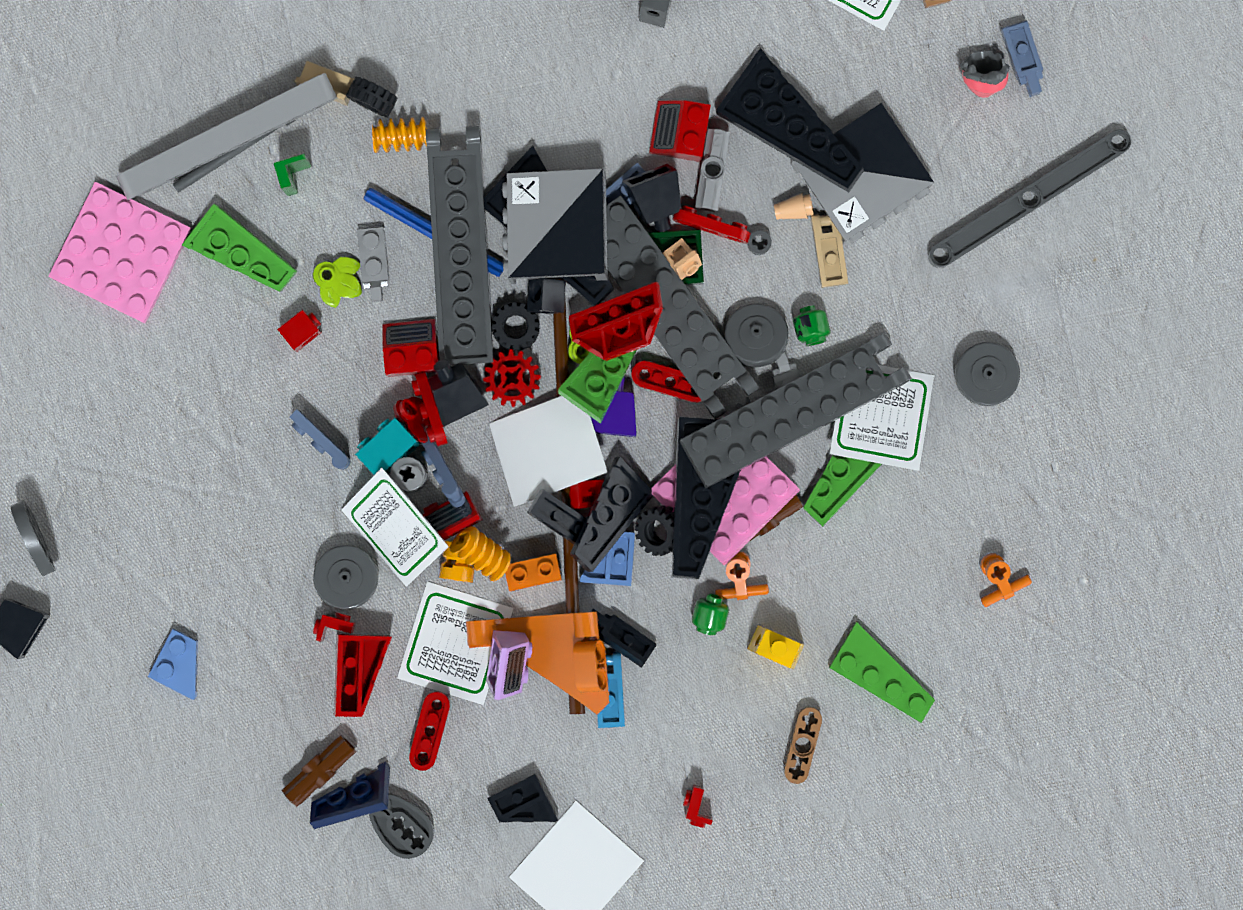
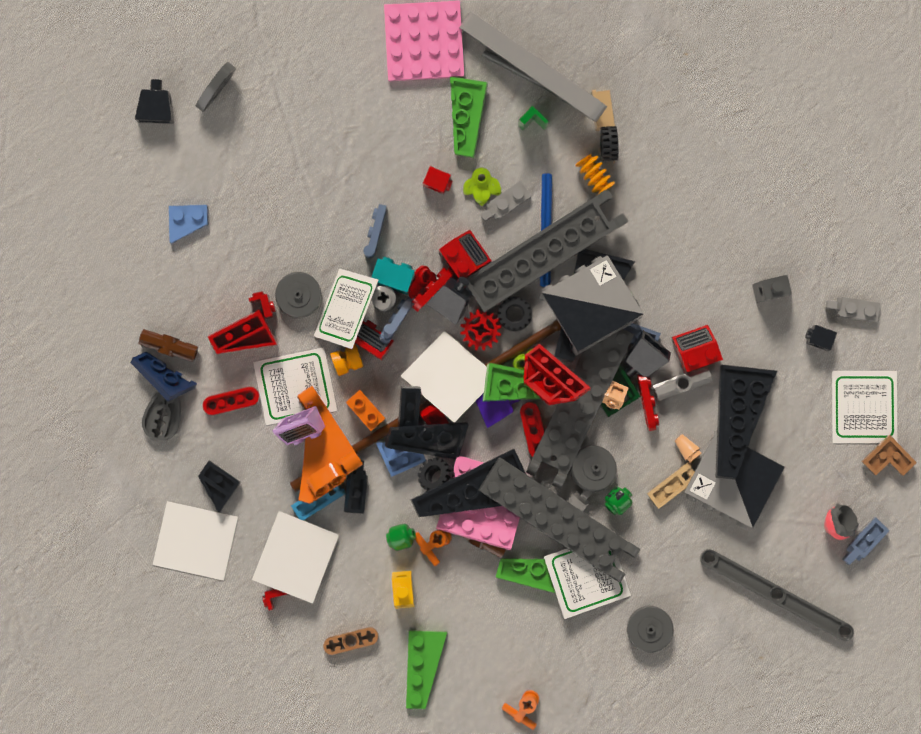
camera: 60 degrees right, 0 degrees up
(481, 552) = (360, 371): light orange piece -> none
(546, 296) = (544, 322): black brick -> none
(664, 756) = (295, 557): none -> white sticker
(764, 236) = (647, 437): dark grey bush -> none

